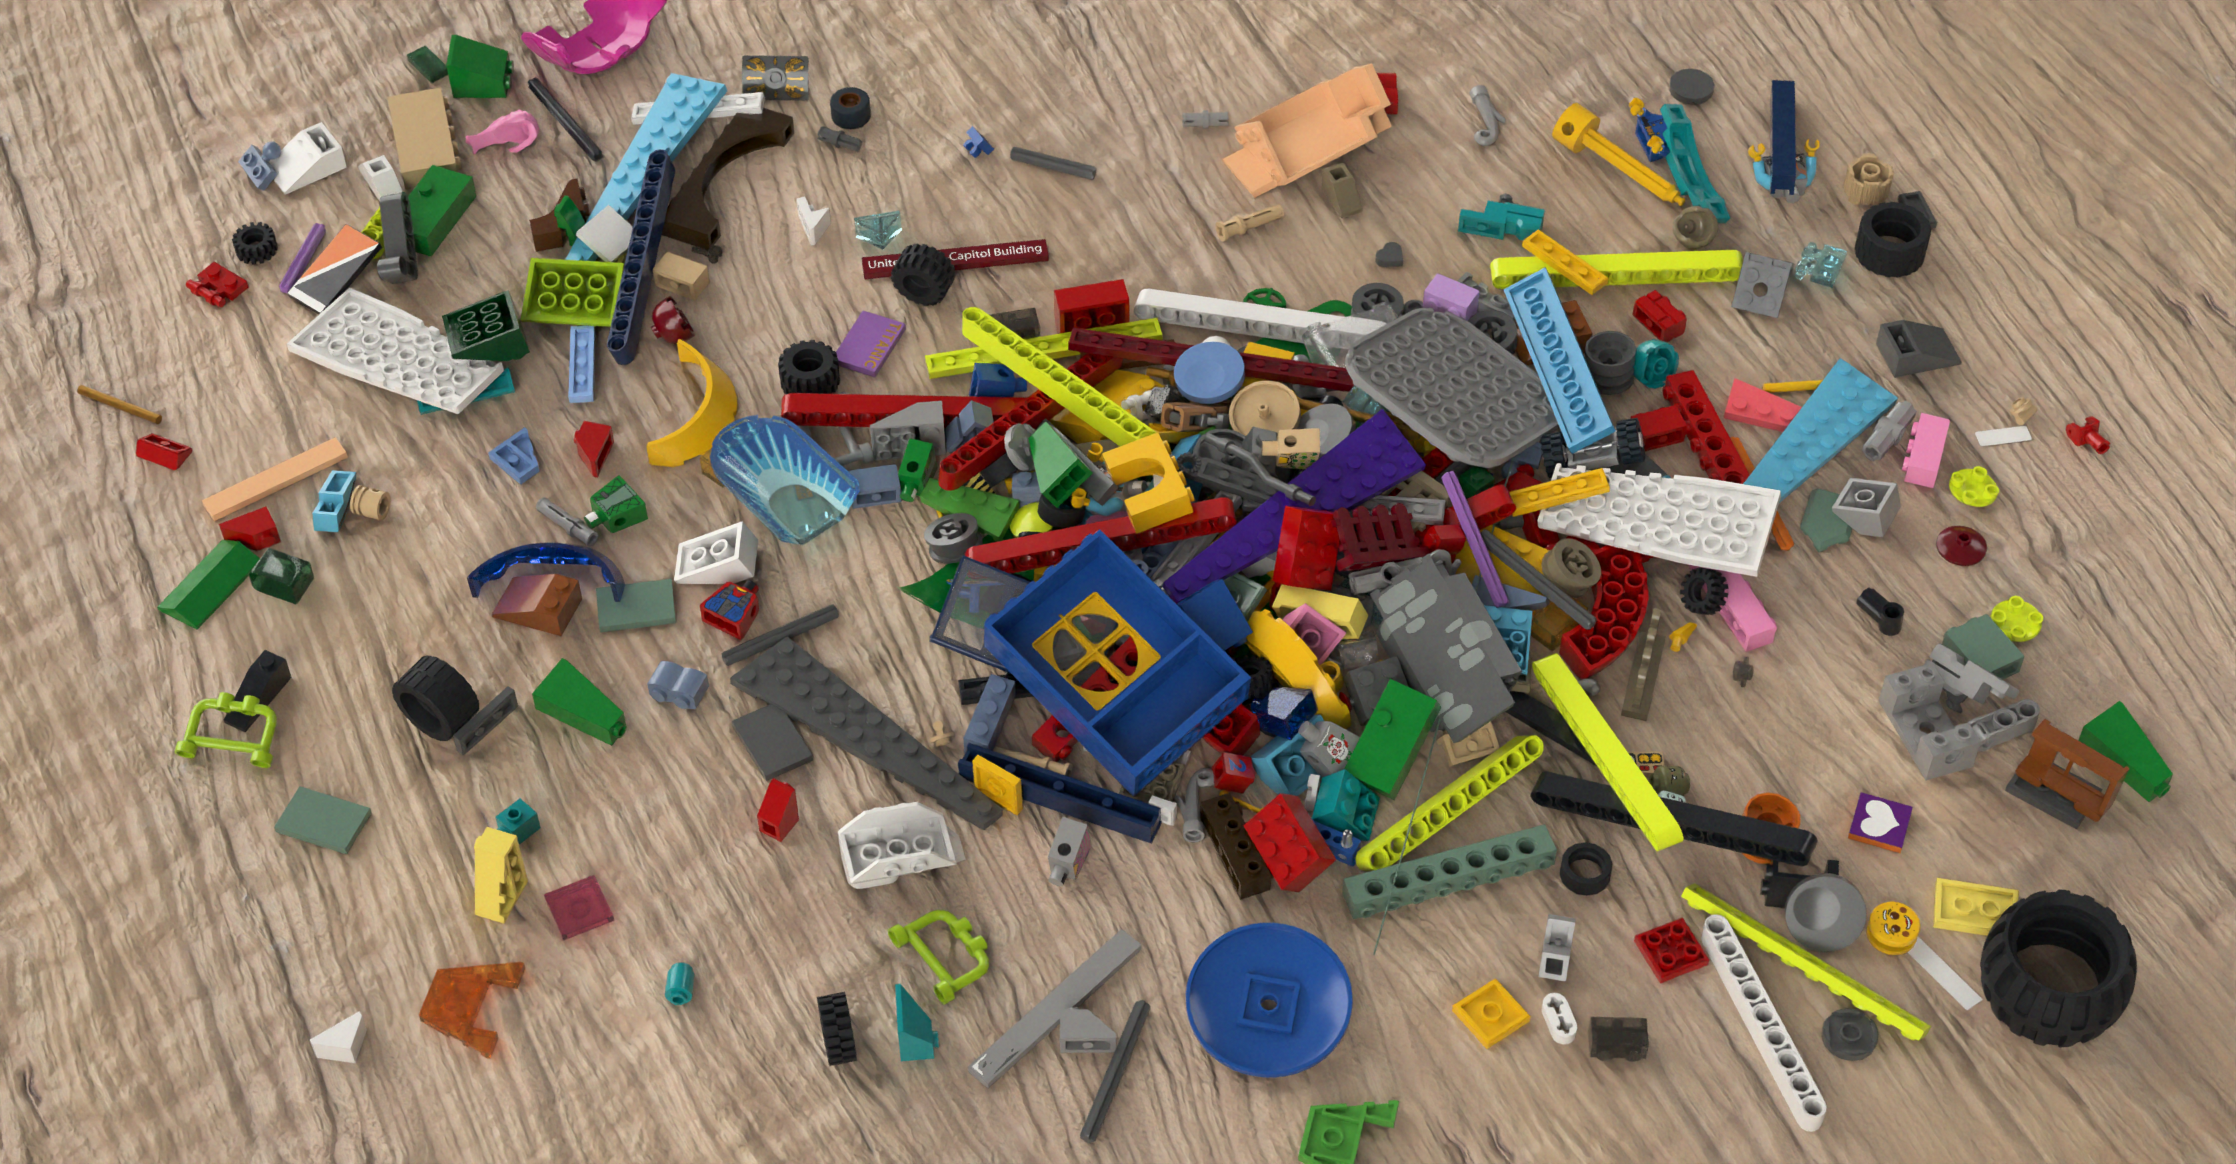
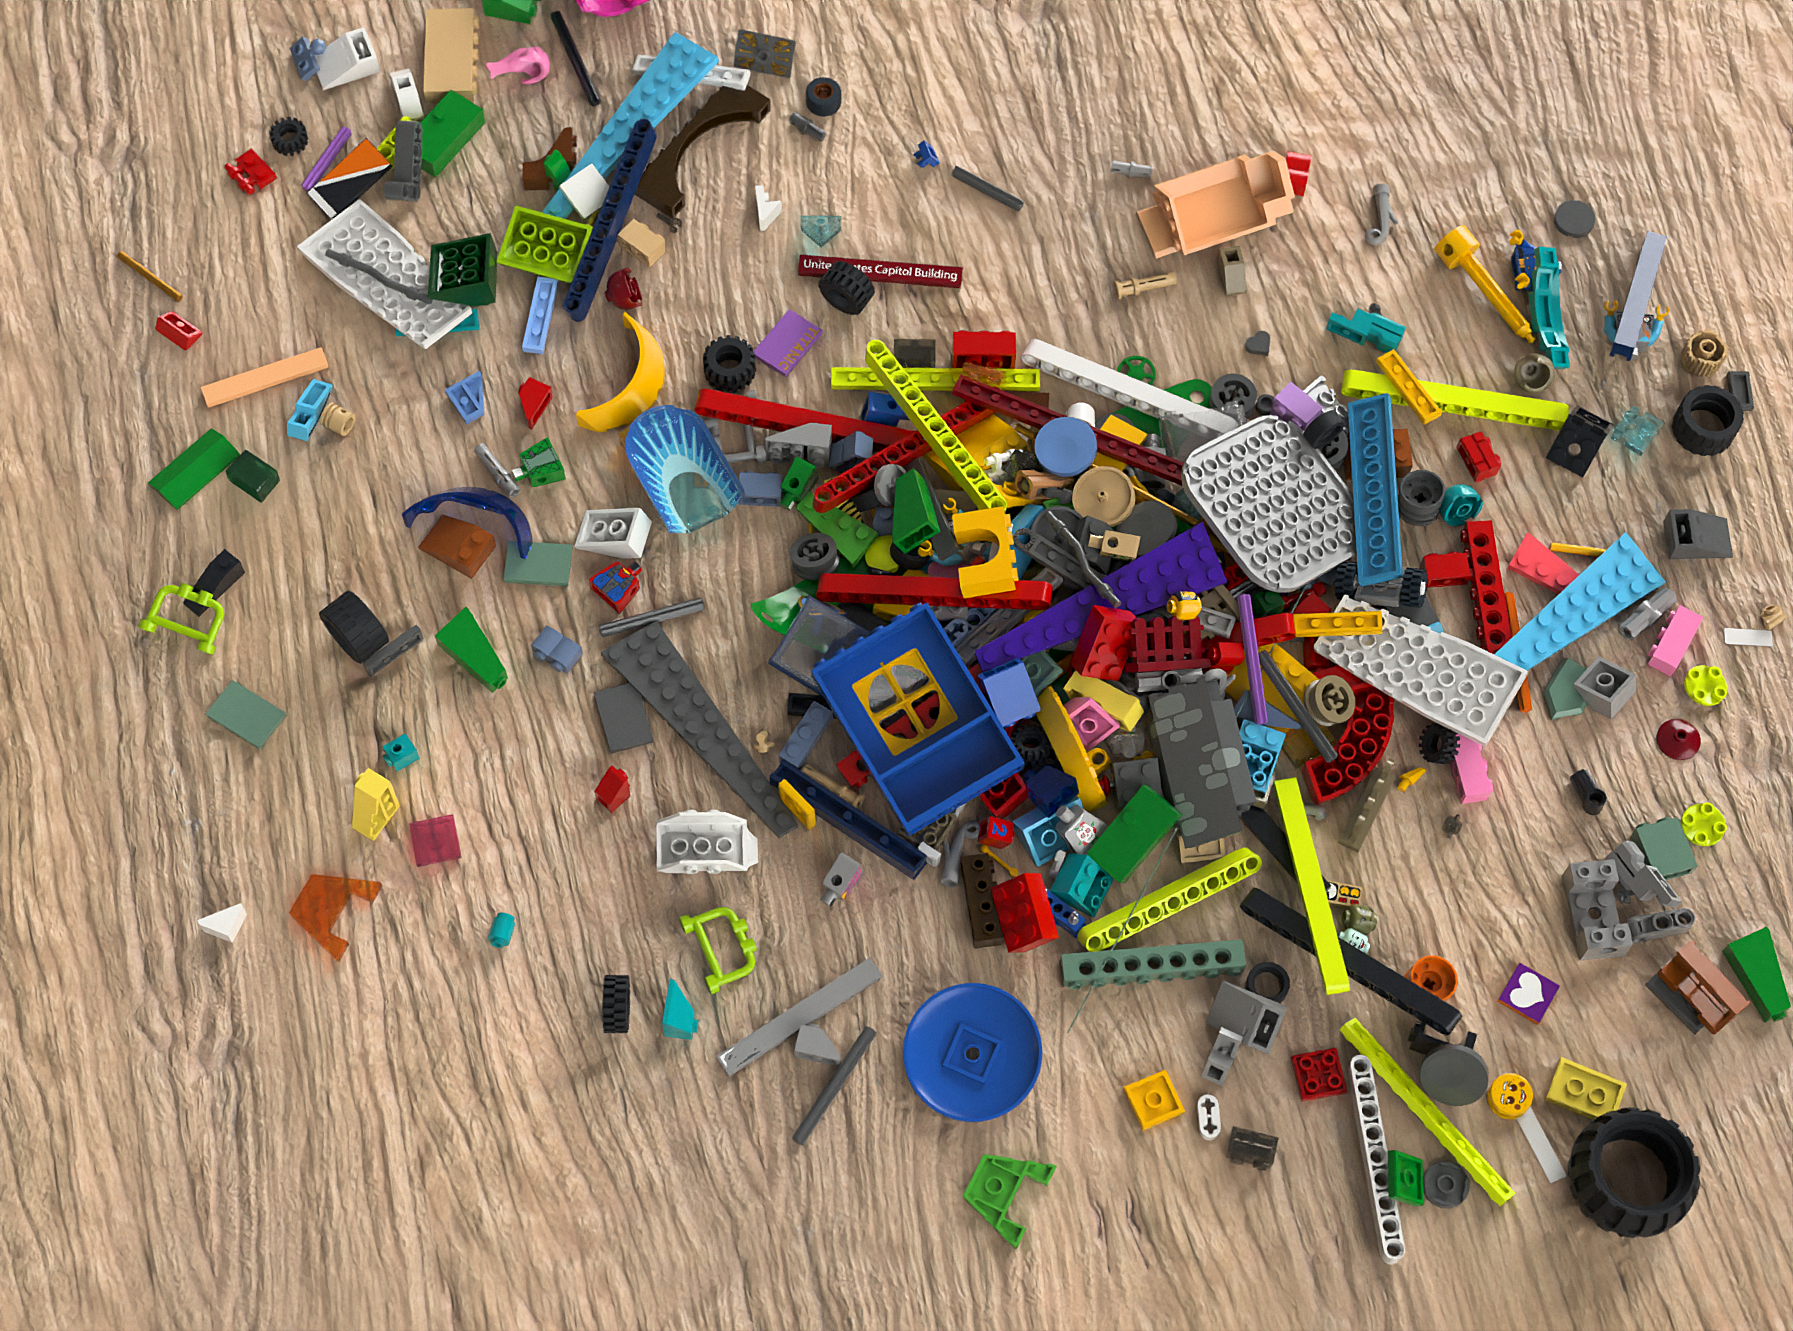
camera: 10 degrees right, 15 degrees up
(254, 530) = (237, 425): red slope -> none
(349, 344) = (410, 292): none -> dark grey bar
(1100, 322) = (976, 372): none -> clear orange plate
(1386, 492) = (1184, 605): none -> yellow head
(1486, 311) = (1323, 429): none -> black tyre
(1573, 896) = (1247, 1015): none -> light grey slope
(1803, 1032) = (1405, 1178): none -> green tile

